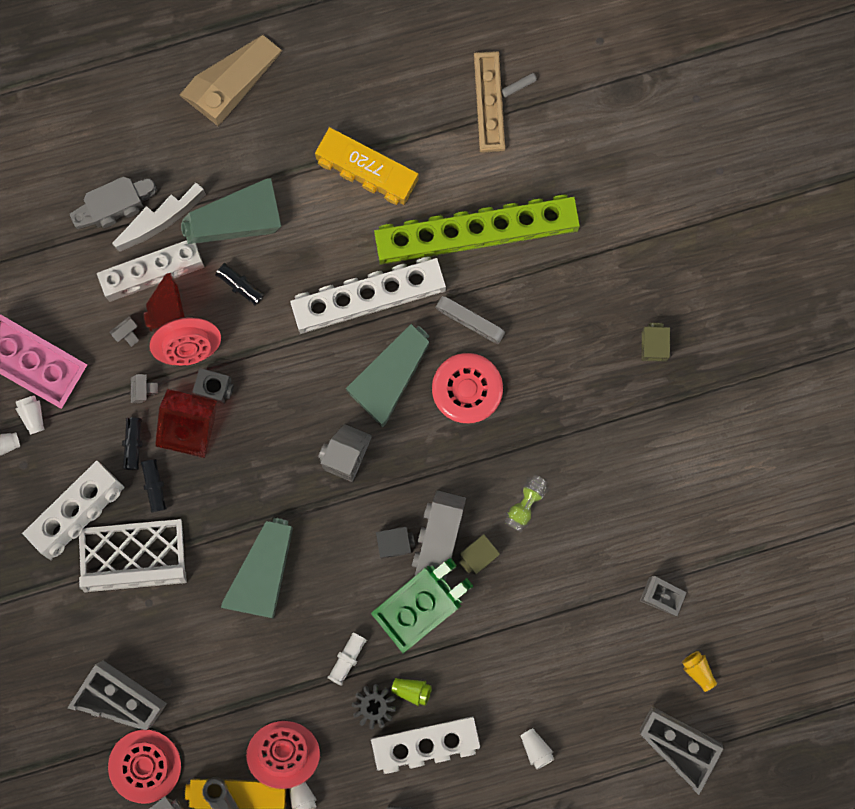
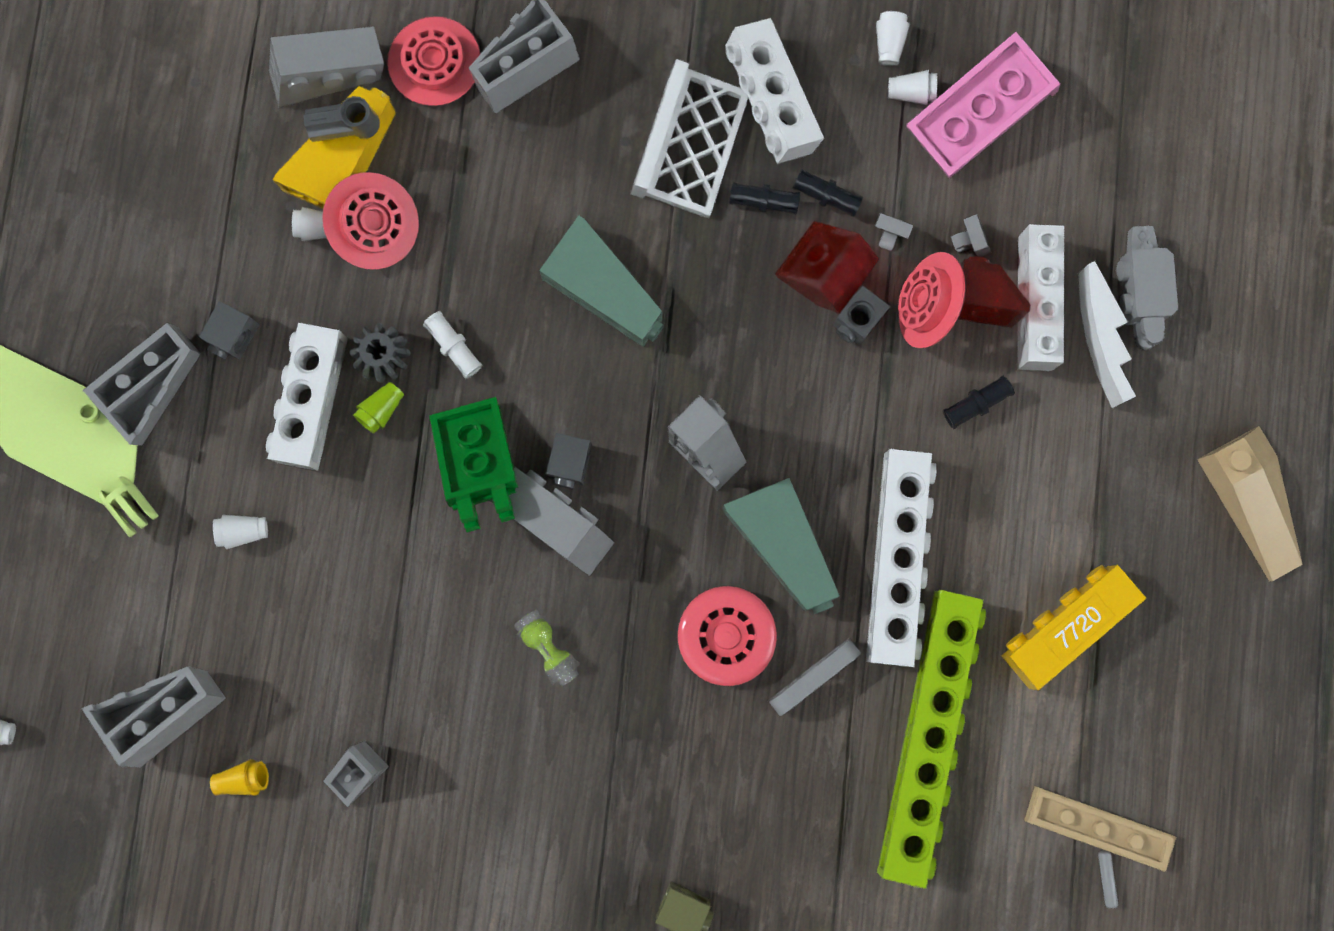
camera: 115 degrees right, 0 degrees up
(238, 215) = (1072, 427): sand green slope -> none
(478, 555) = (507, 559): olive brick -> none

